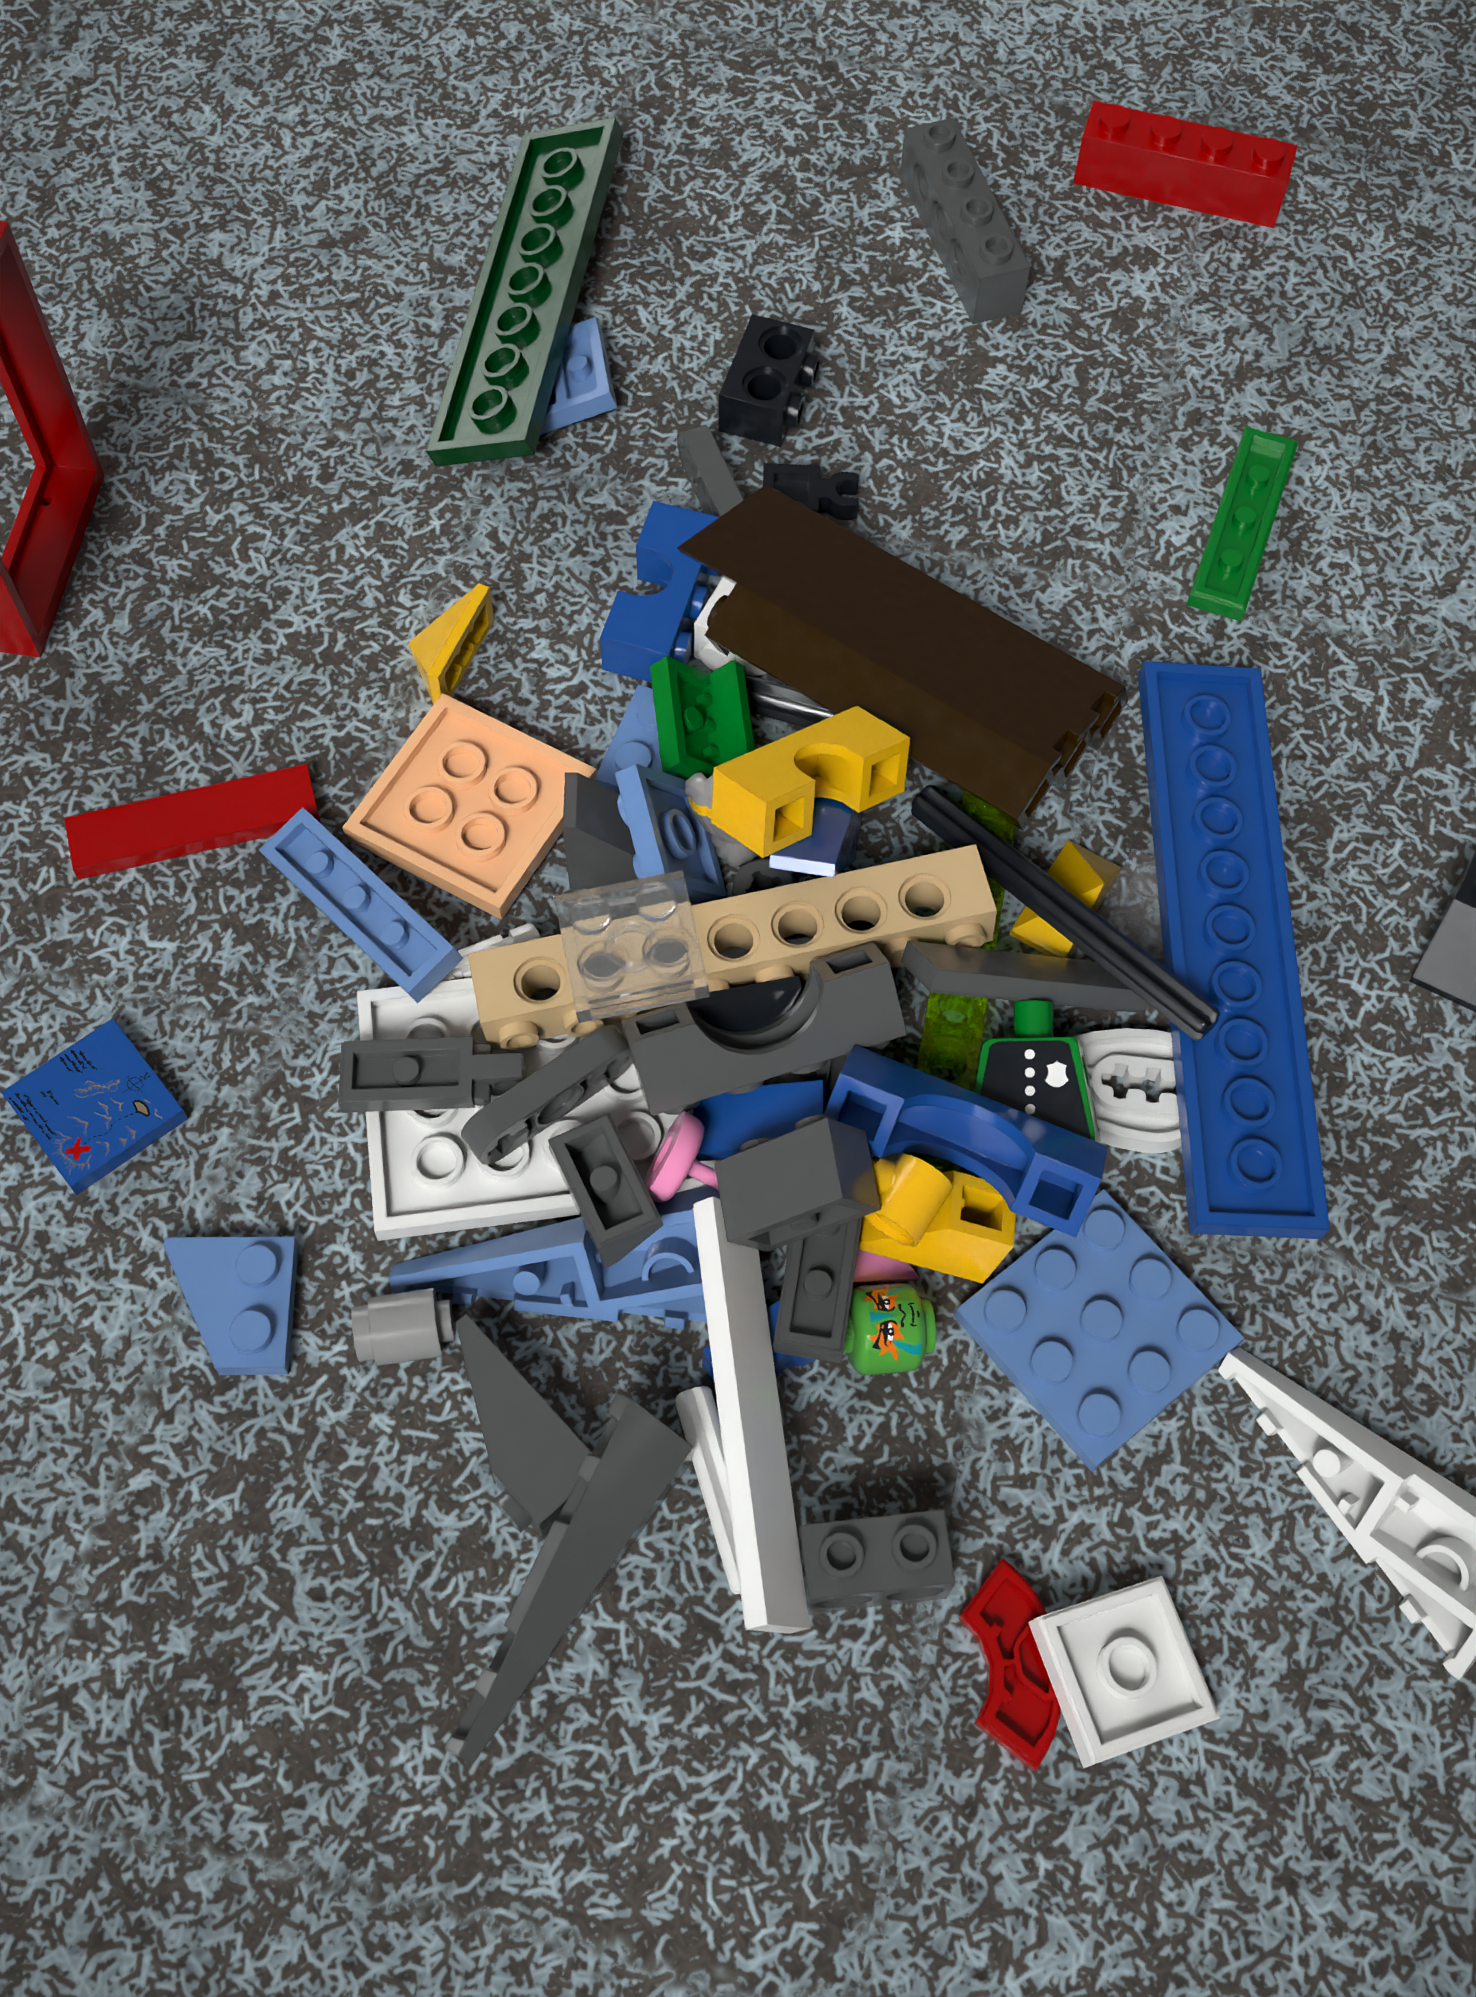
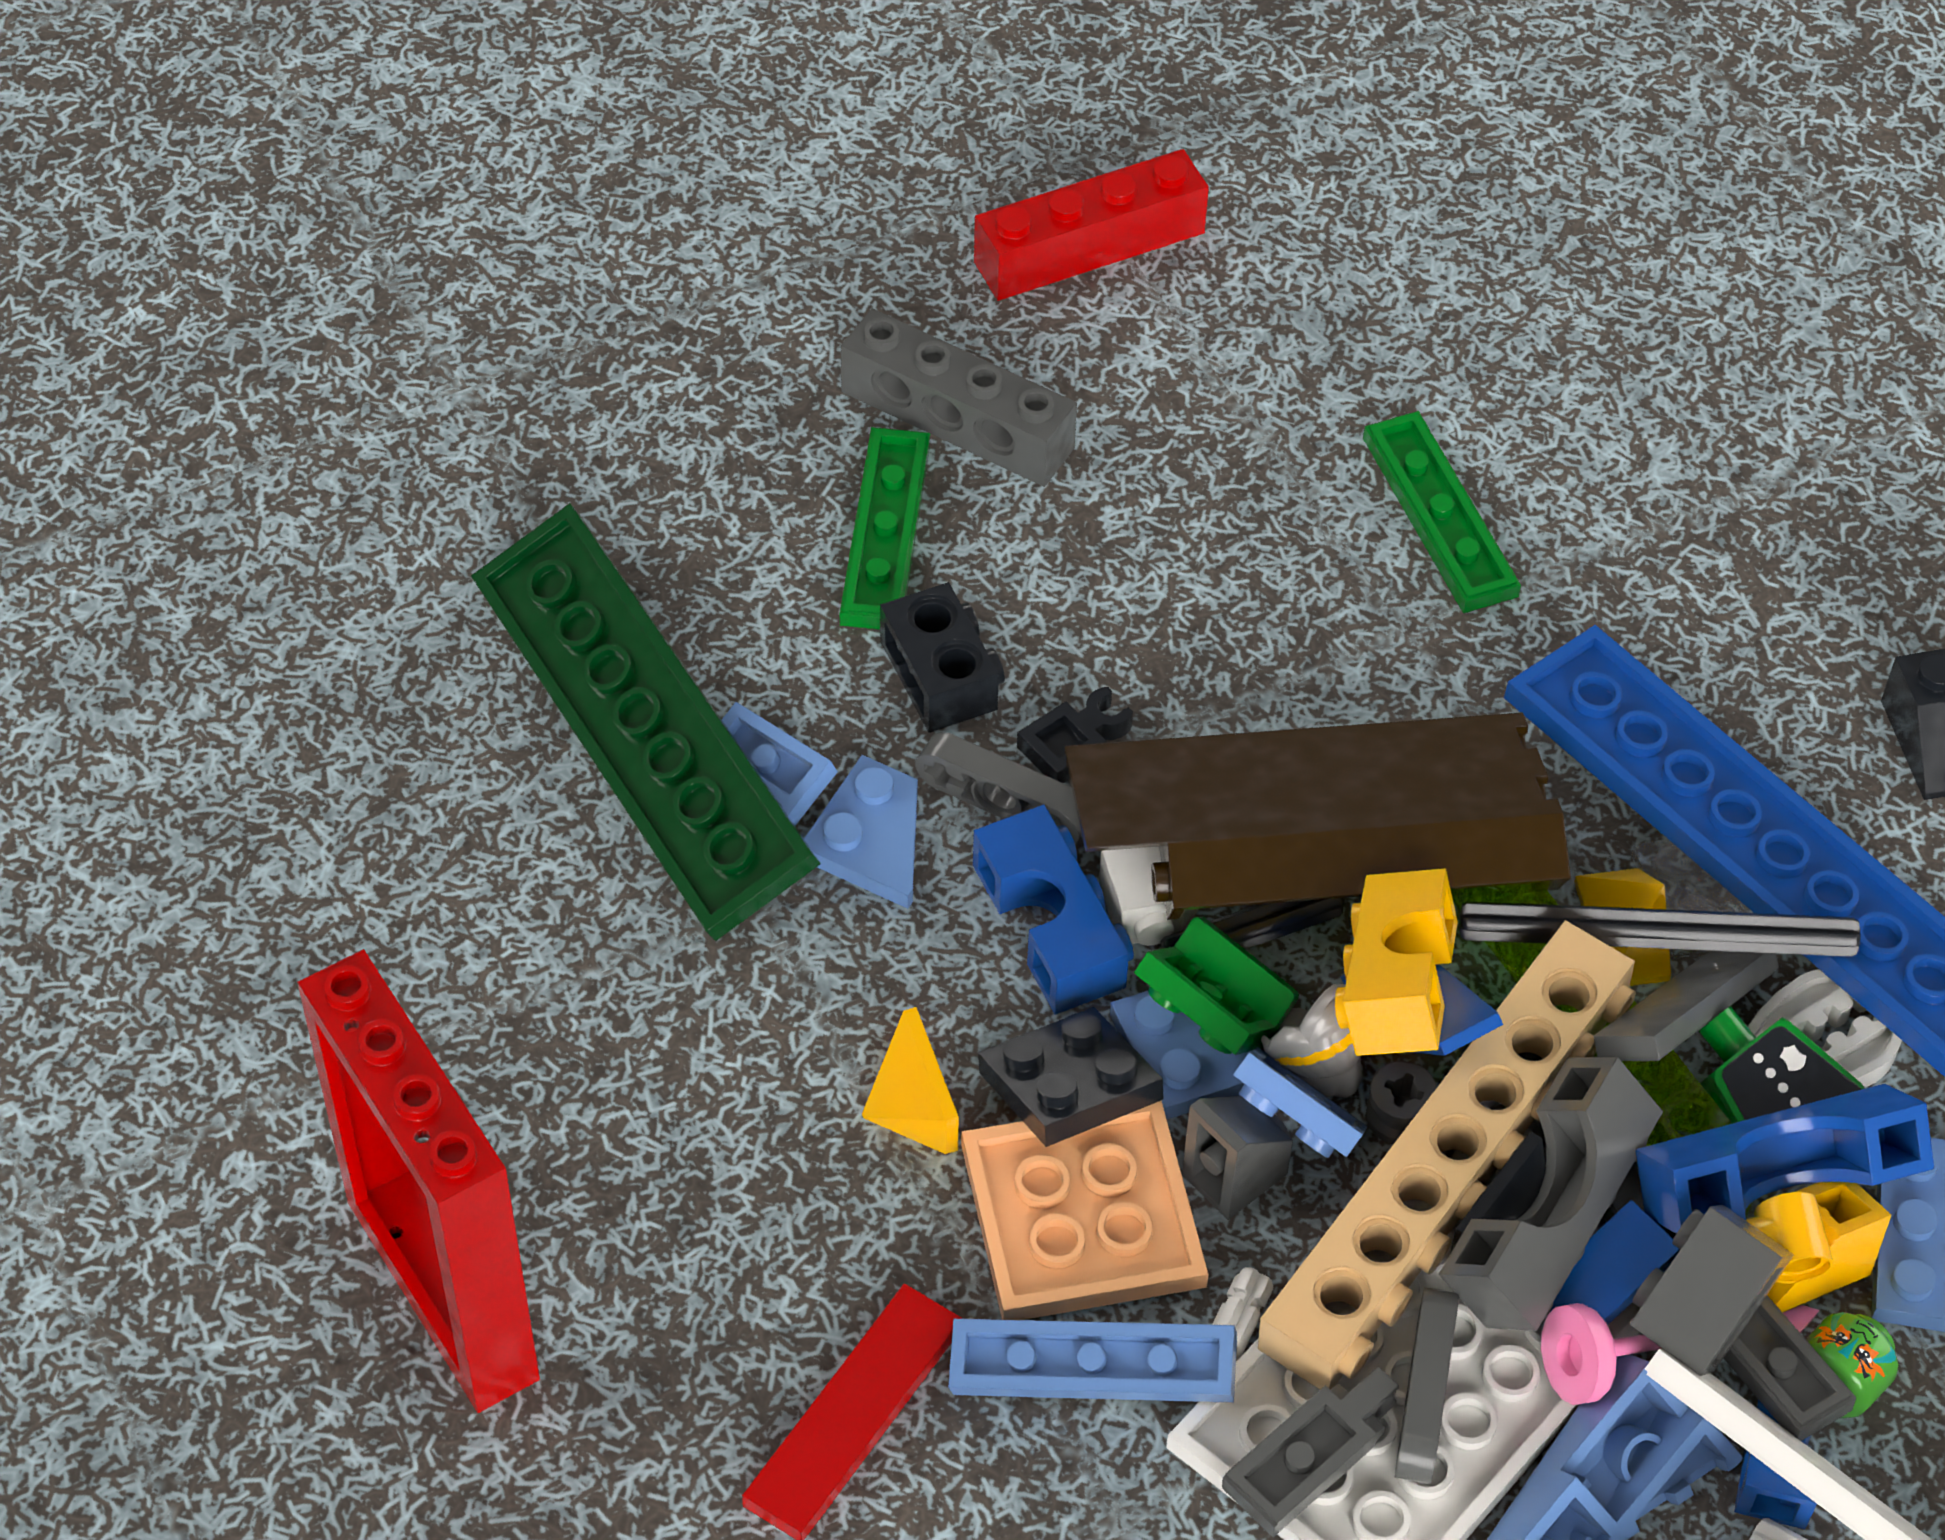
camera: 40 degrees left, 10 degrees down
(551, 710) = (1070, 1076): none -> black plate
(605, 1188) = (1554, 1421): dark grey slope -> none
(606, 463) = (870, 831): none -> medium blue wing
(631, 946) = (1392, 1205): clear plate -> none
(837, 272) = (884, 524): none -> green tile

